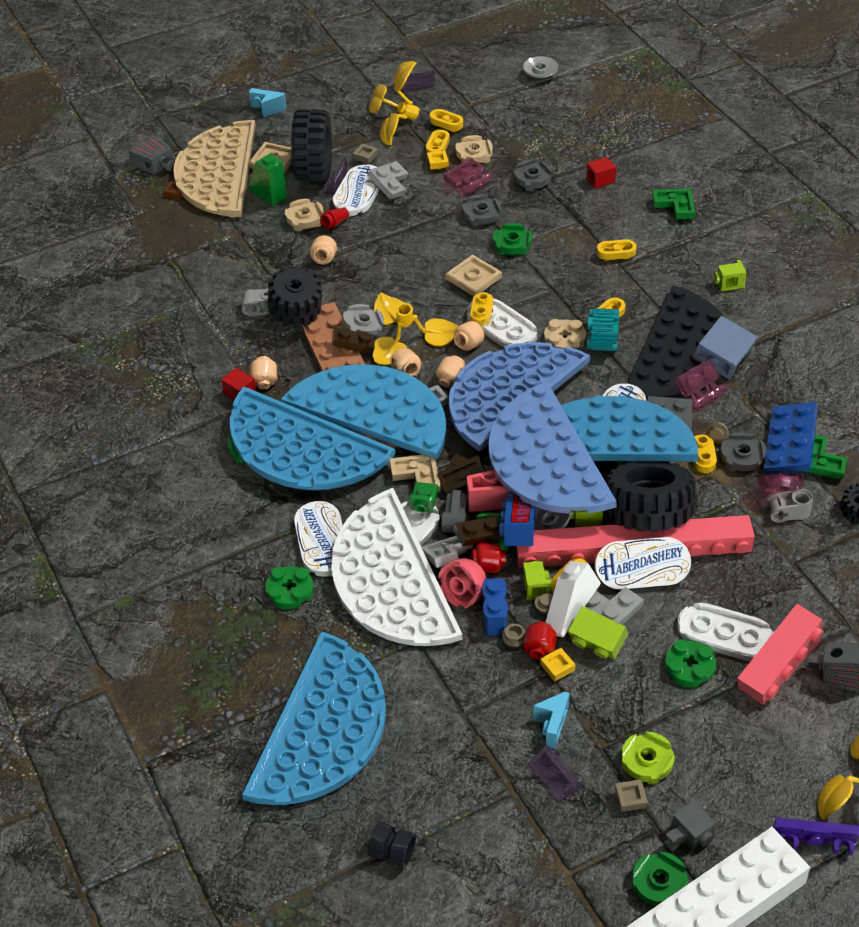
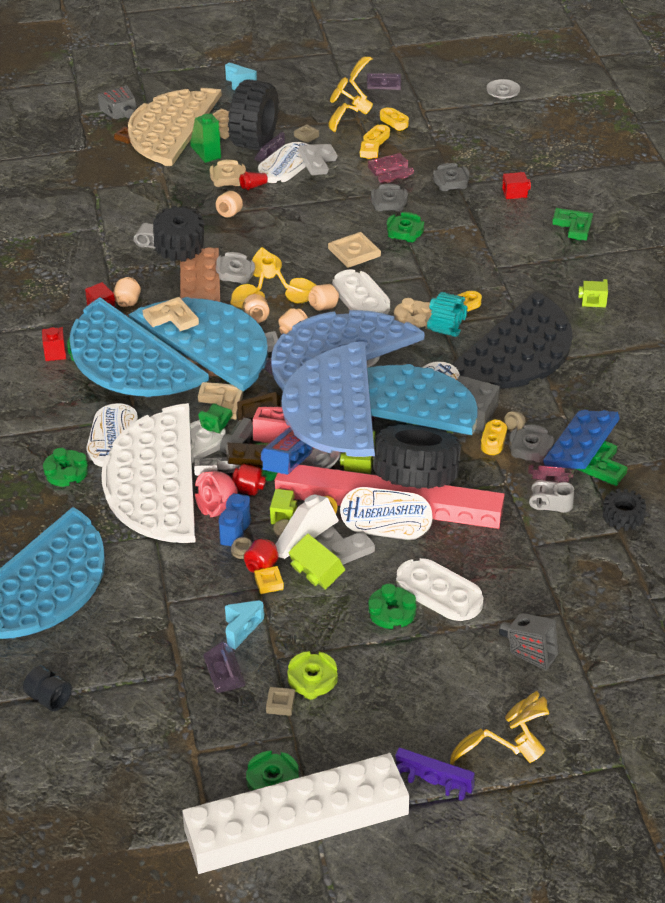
camera: 15 degrees right, 5 degrees down
(214, 449) = (53, 344): none -> brick
(331, 386) = (172, 310): none -> tan plate
(353, 340) = (216, 280): dark brown plate -> none
(482, 151) = (408, 146): tan plate -> none
(482, 308) = (346, 277): yellow plate -> none
(616, 249) = (497, 252): yellow plate -> none
(690, 826) = (321, 739): dark grey brick -> none
(696, 379) = (516, 371): clear pink plate -> none
(725, 346) = (554, 349): sand blue panel -> none
(781, 654) = (476, 616): coral wedge -> none

